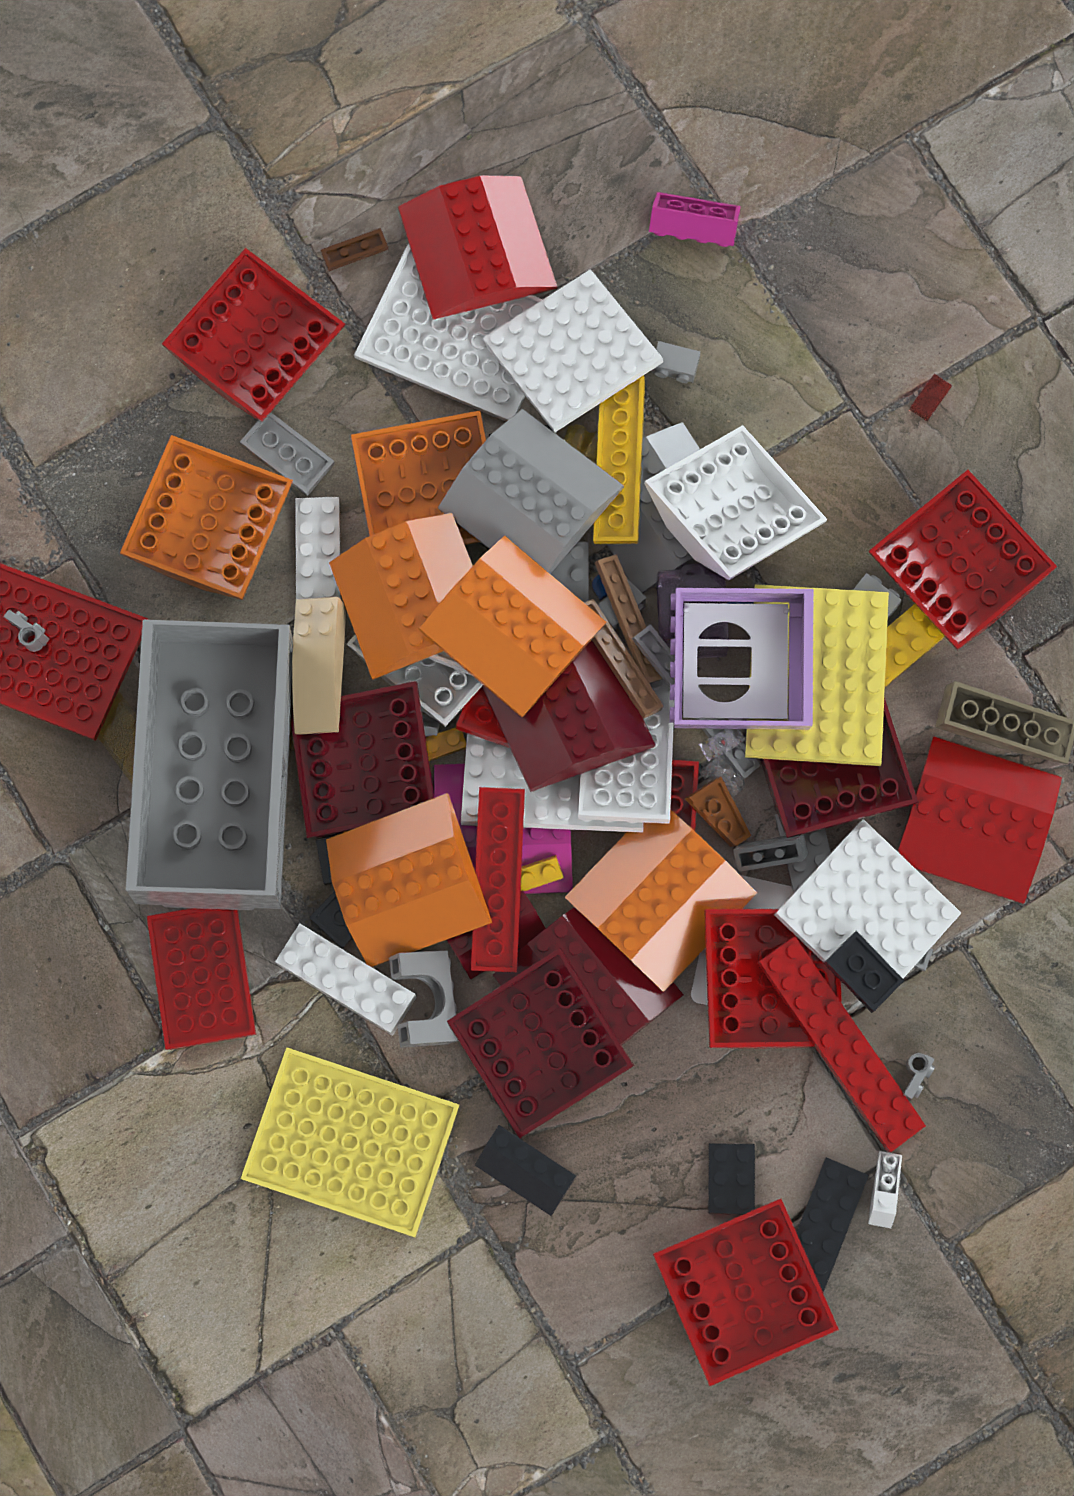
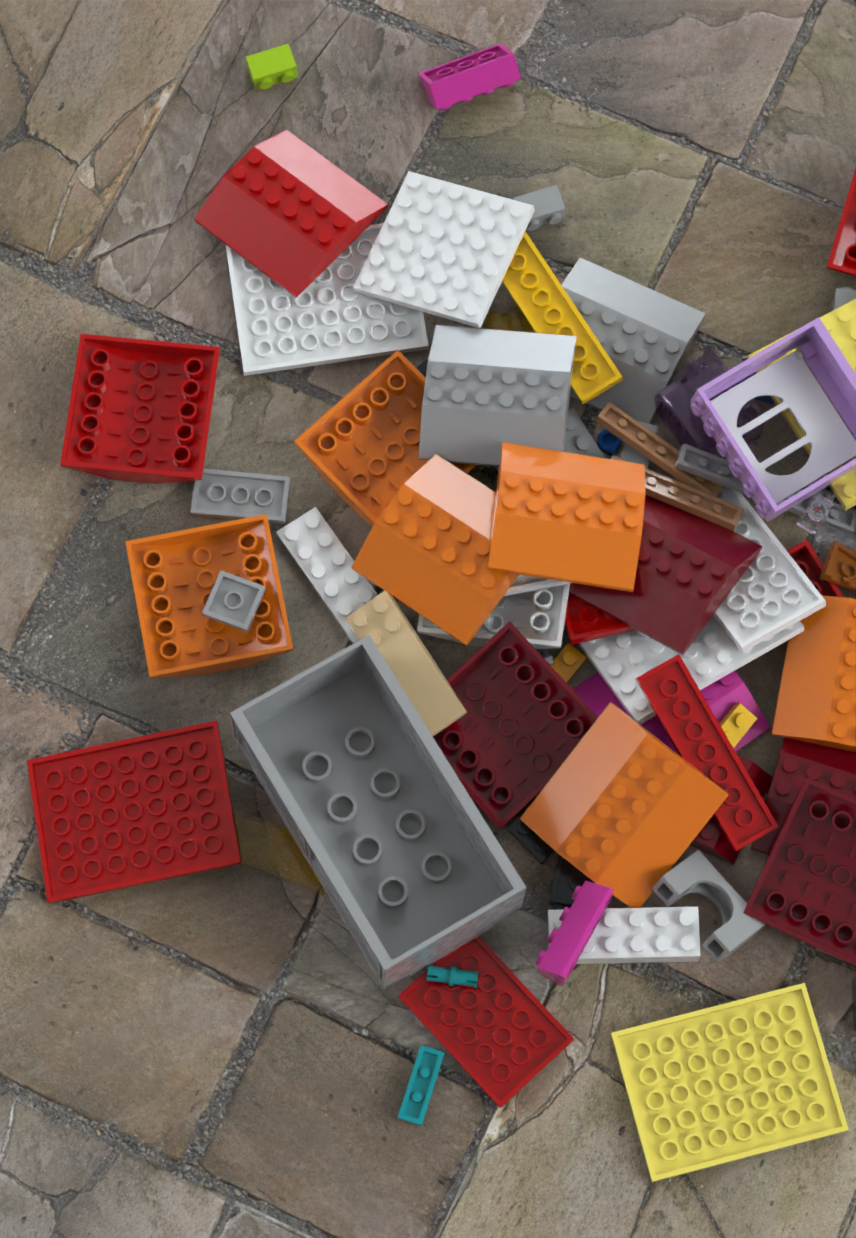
camera: 35 degrees left, 5 degrees down
(26, 630) = (97, 798): light grey plate -> none
(119, 994) = (421, 1085): none -> teal plate
(195, 927) = (452, 976): none -> teal pin
(219, 533) = (234, 601): none -> light grey plate
(302, 954) = (574, 932): none -> dark pink slope
(354, 249) = (179, 280): reddish brown plate -> none
(542, 117) = (271, 67): none -> lime brick
(732, 504) = (682, 297): white slope -> none
(930, 397) = (781, 109): clear red tile -> none

